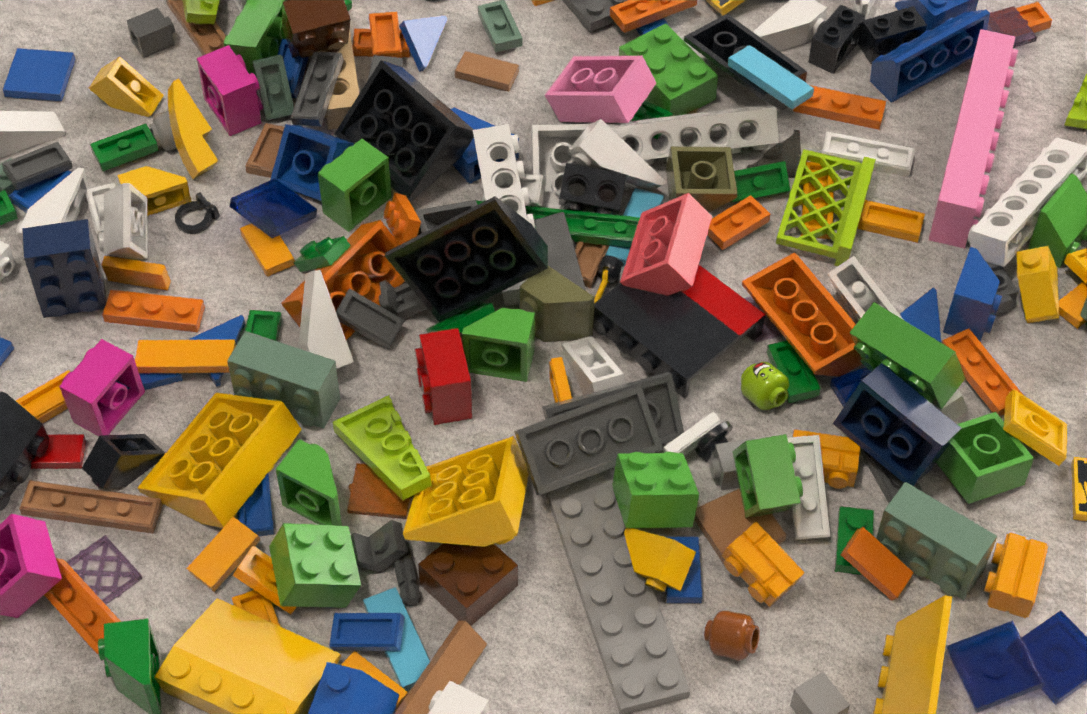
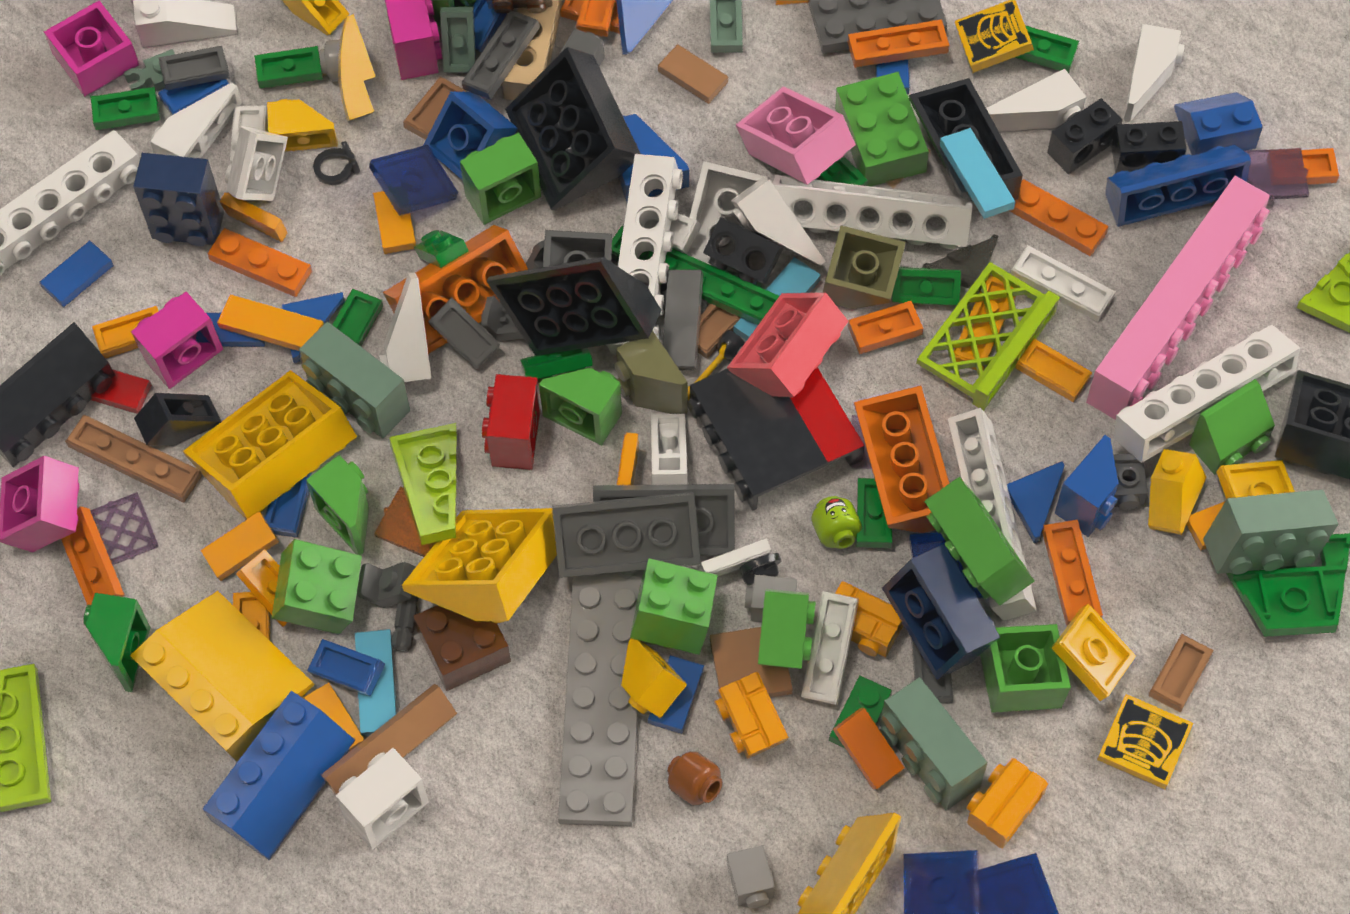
camera: 20 degrees right, 10 degrees up
(401, 218) = (530, 235): orange plate -> none

